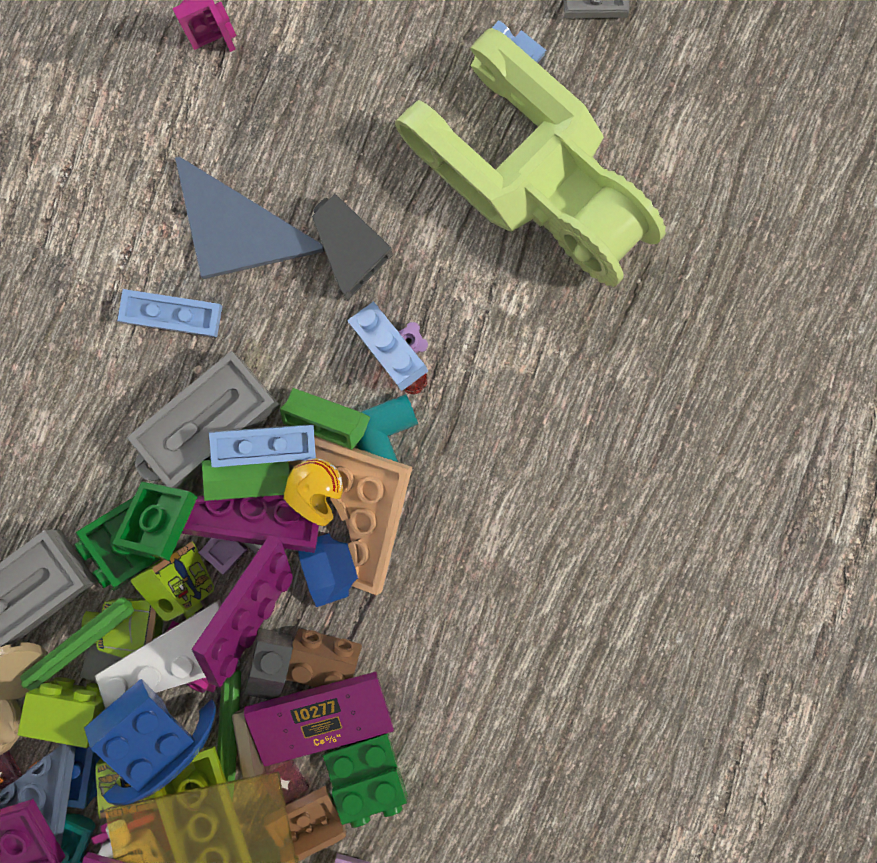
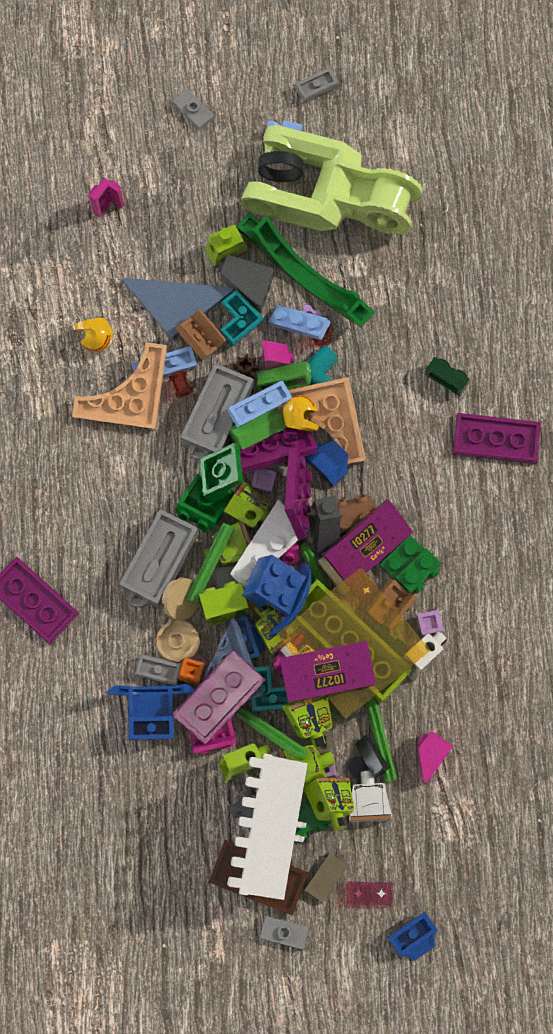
camera: 25 degrees left, 10 degrees down
(93, 222) = (97, 334): none -> yellow helmet
(98, 345) = (134, 400): none -> light nougat plate
(178, 352) = (181, 384): none -> clear red bush
(238, 295) = (201, 334): none -> medium nougat bracket
(281, 364) = (246, 361): none -> reddish brown gear
(315, 301) = (245, 318): none -> teal brick
(328, 381) = (276, 354): none -> dark pink slope
(345, 177) = (225, 242): none -> lime torso
(425, 252) = (269, 241): none -> green slope
(485, 88) = (284, 158): none -> black tyre
(553, 518) = (448, 377): none -> dark green piece
(583, 652) = (496, 438): none -> magenta tile

